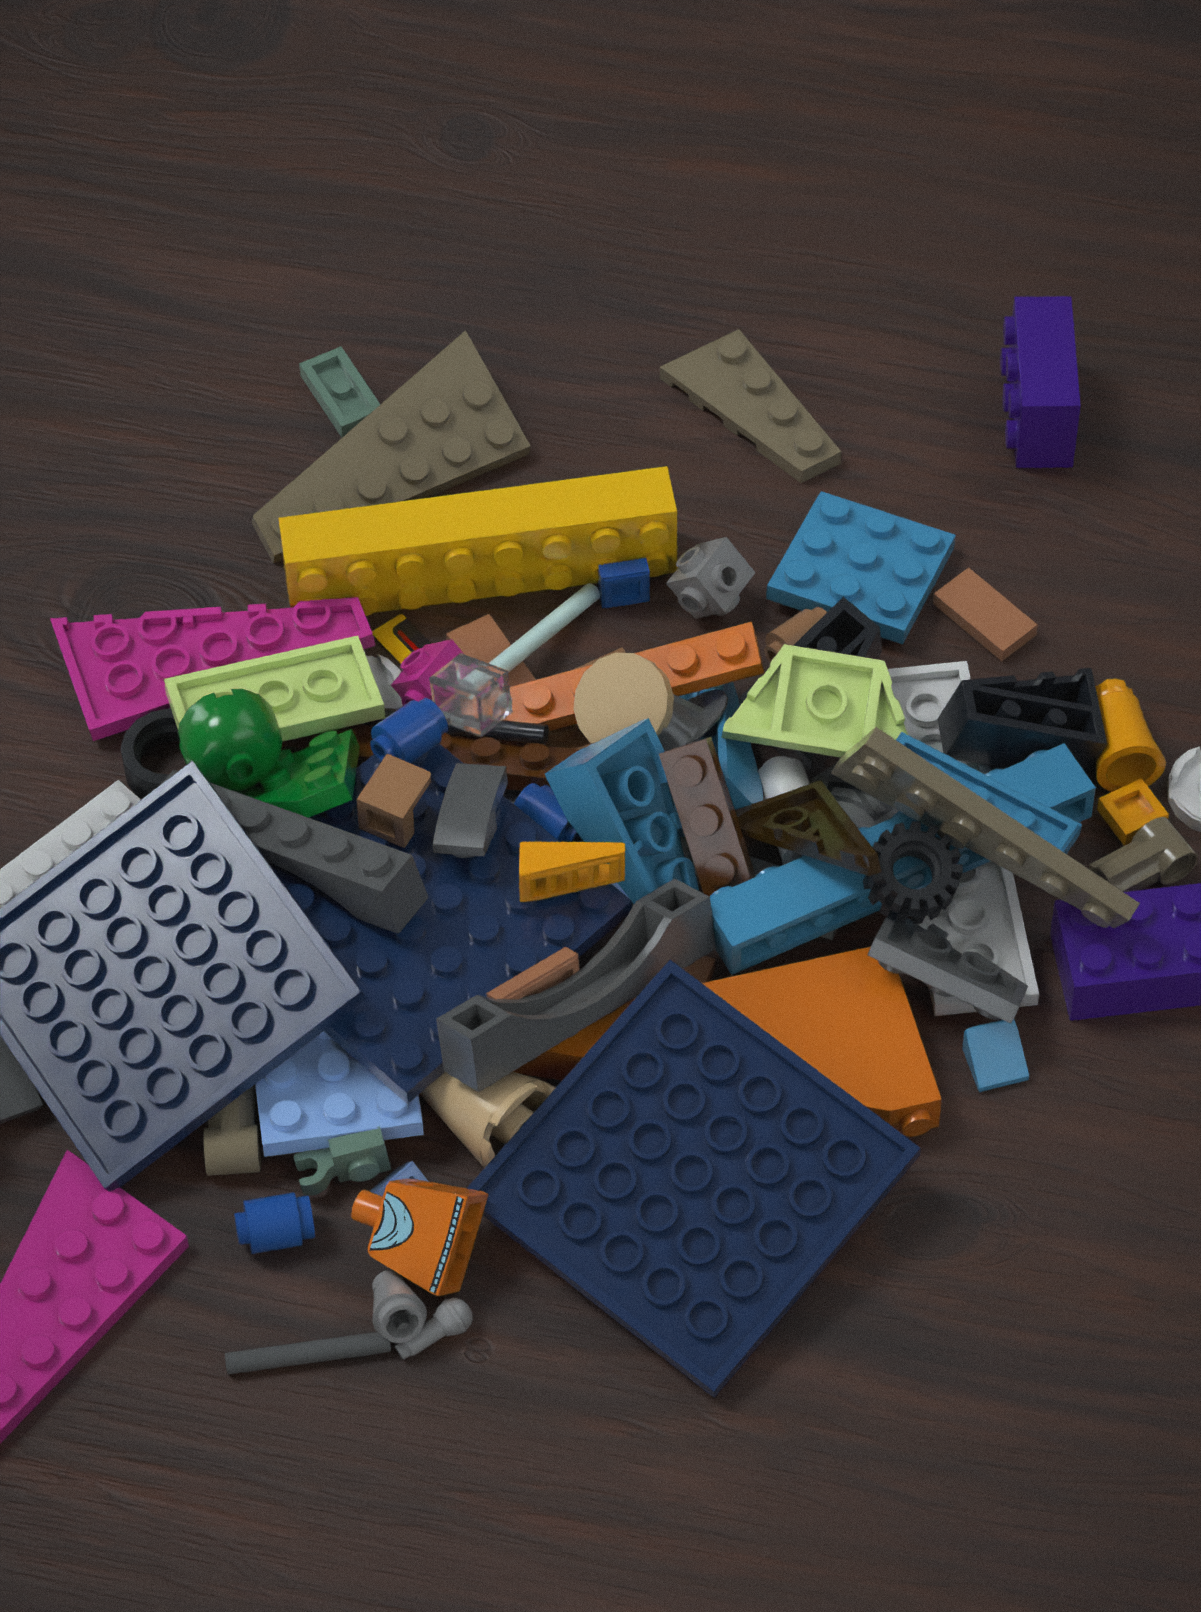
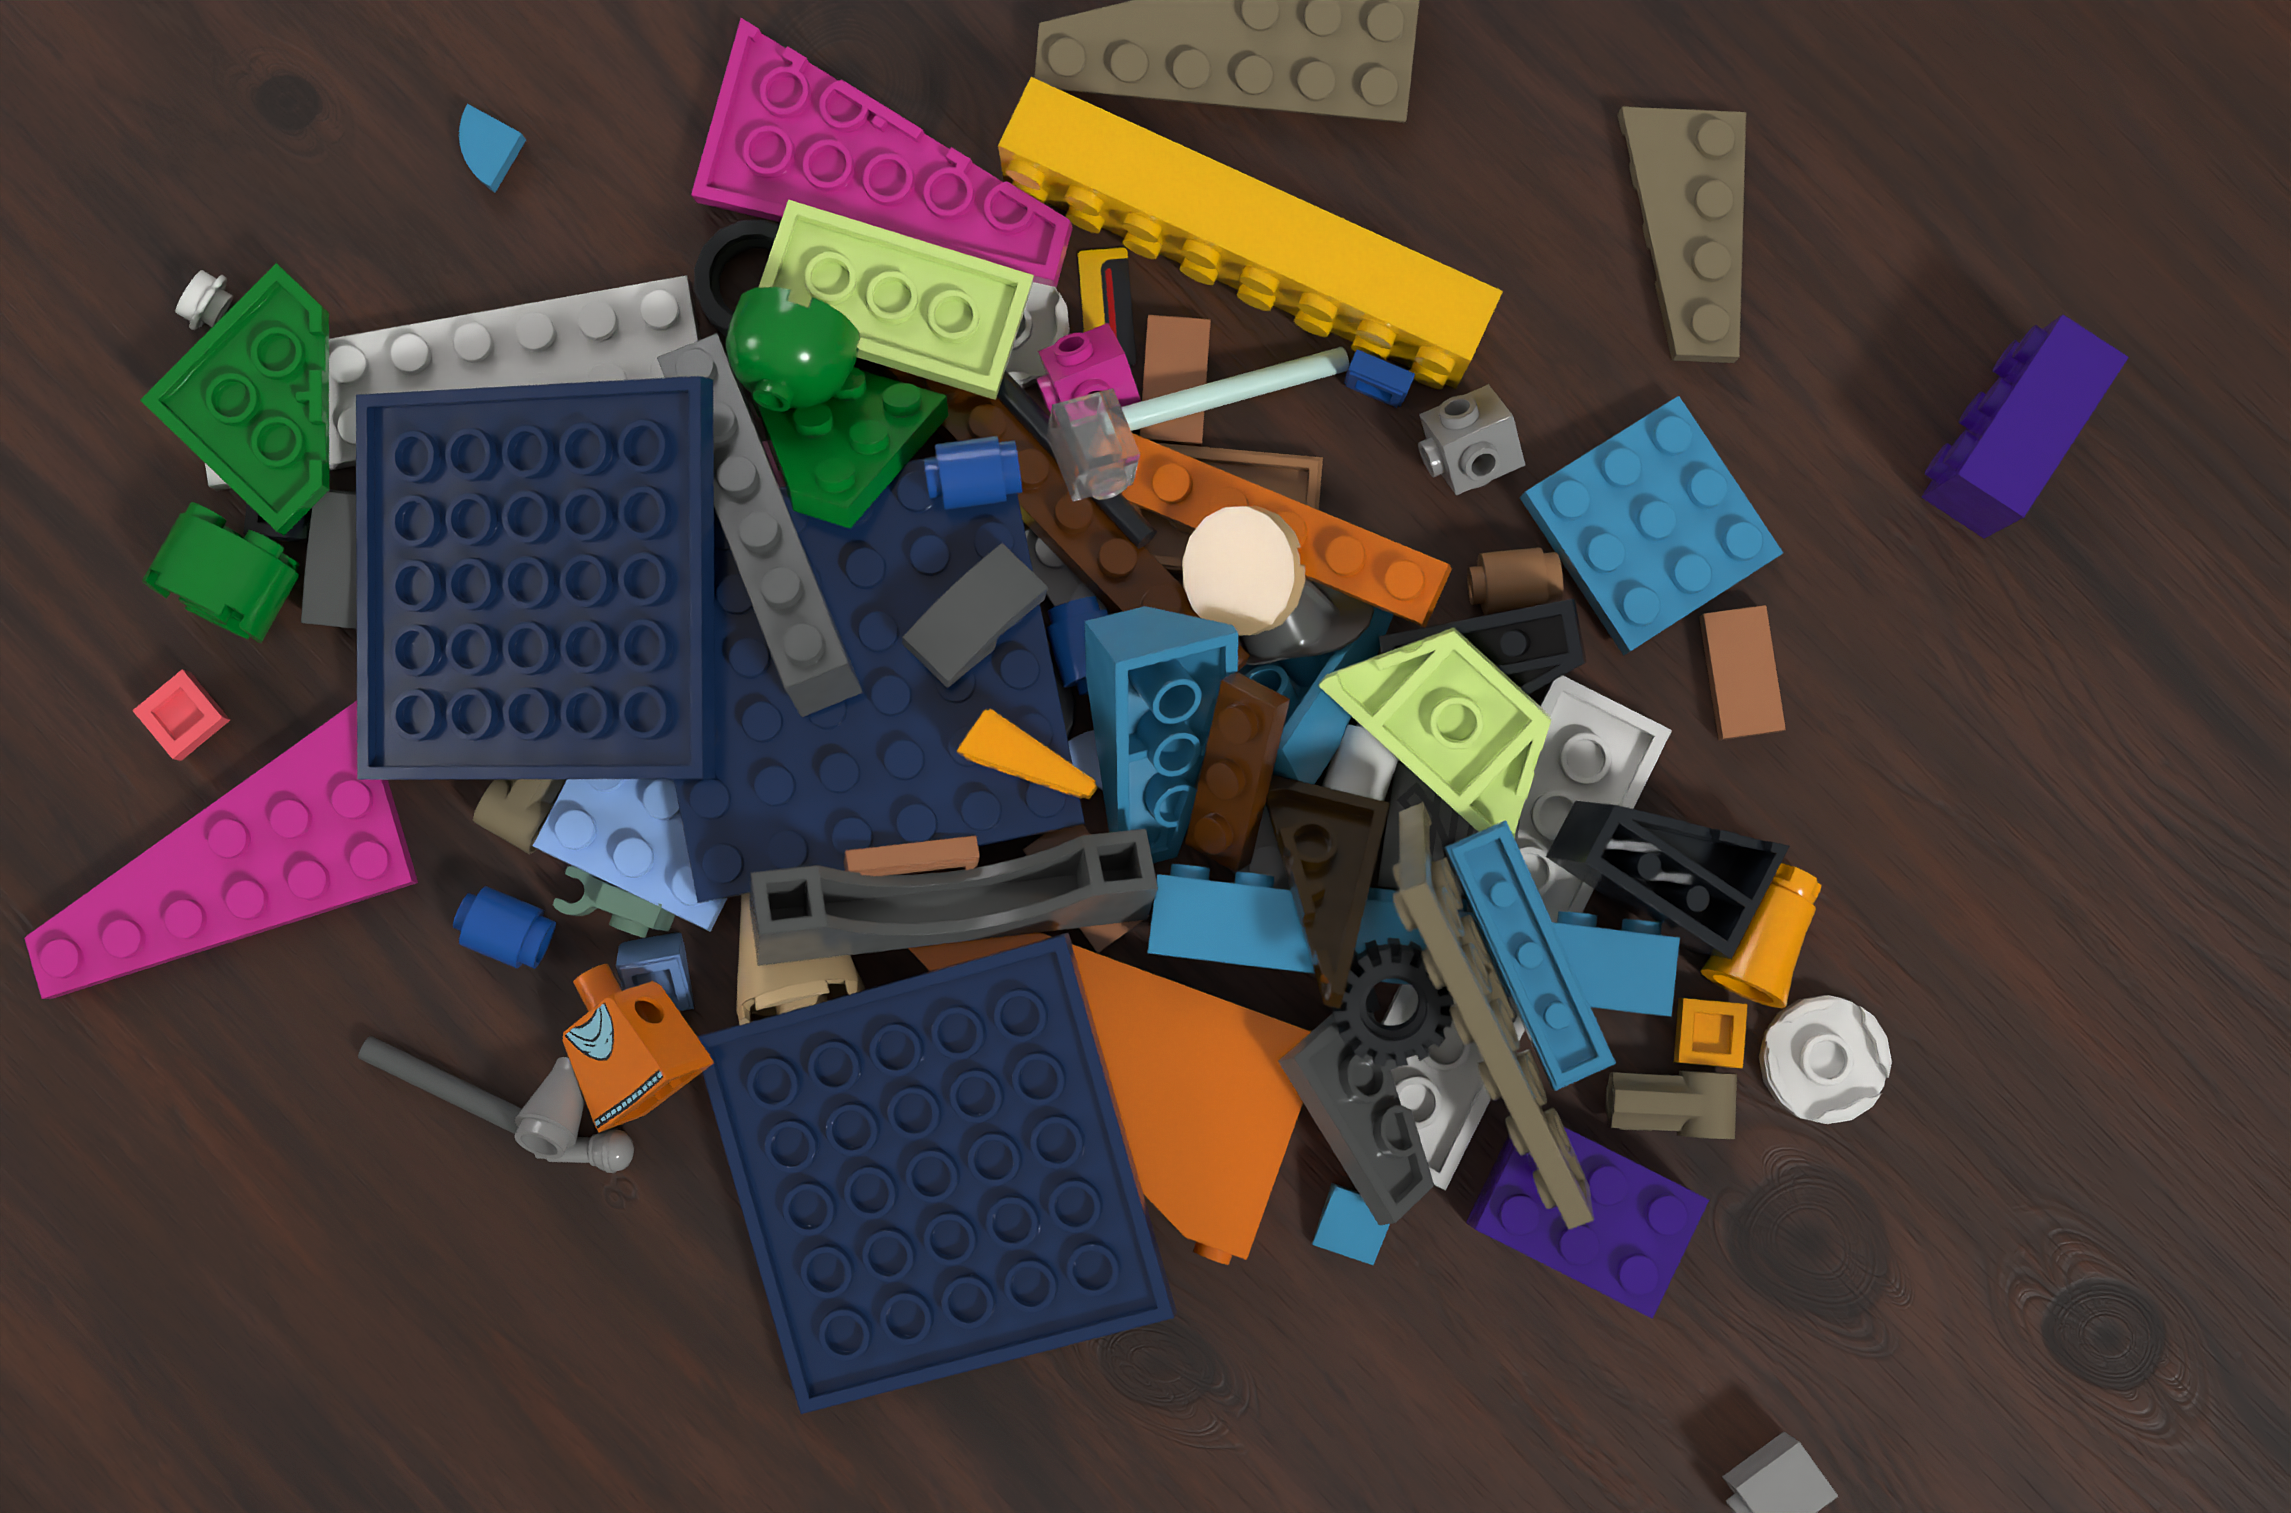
camera: 30 degrees right, 30 degrees up
(389, 800) = (900, 550): medium nougat panel -> none

